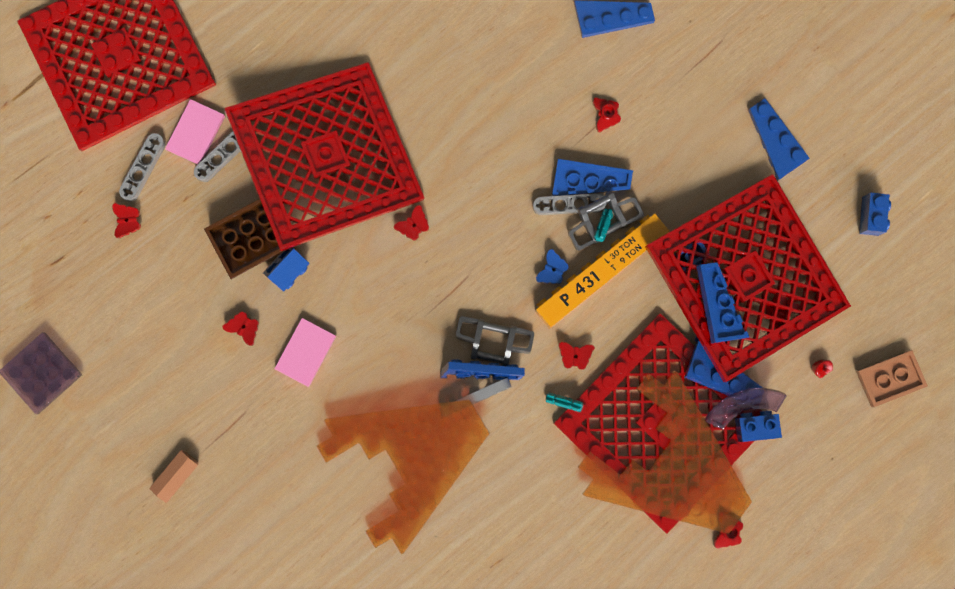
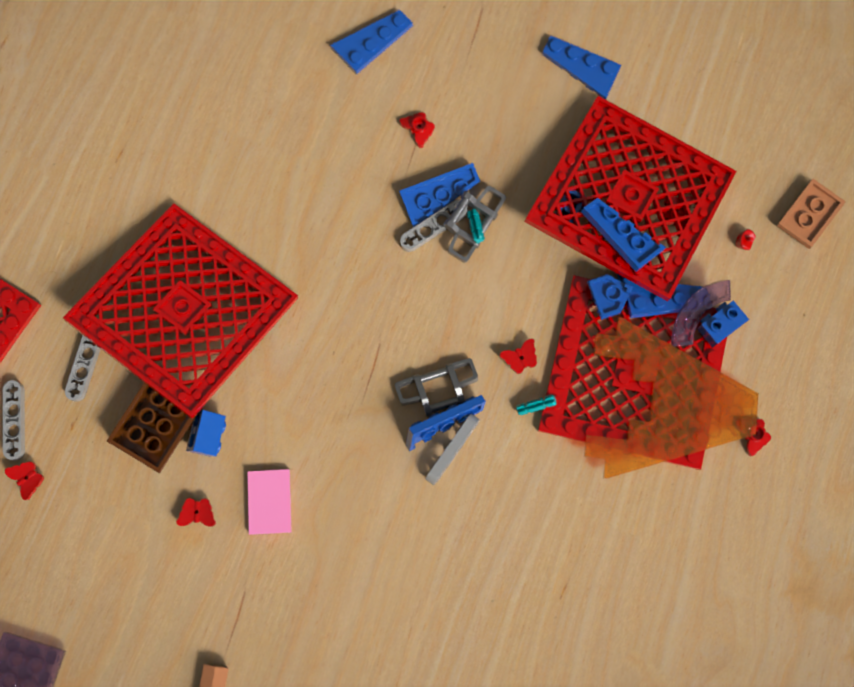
camera: 30 degrees left, 5 degrees down
(195, 132) = (46, 359): bright pink tile -> none
(406, 227) = (305, 318): red animal -> none
(427, 448) = (439, 523): clear orange wing -> none
(553, 262) = (452, 284): blue animal -> none
(601, 271) = (498, 269): light orange brick -> none
(678, 348) = (608, 295): none -> blue plate
(875, 214) = (707, 80): blue brick -> none

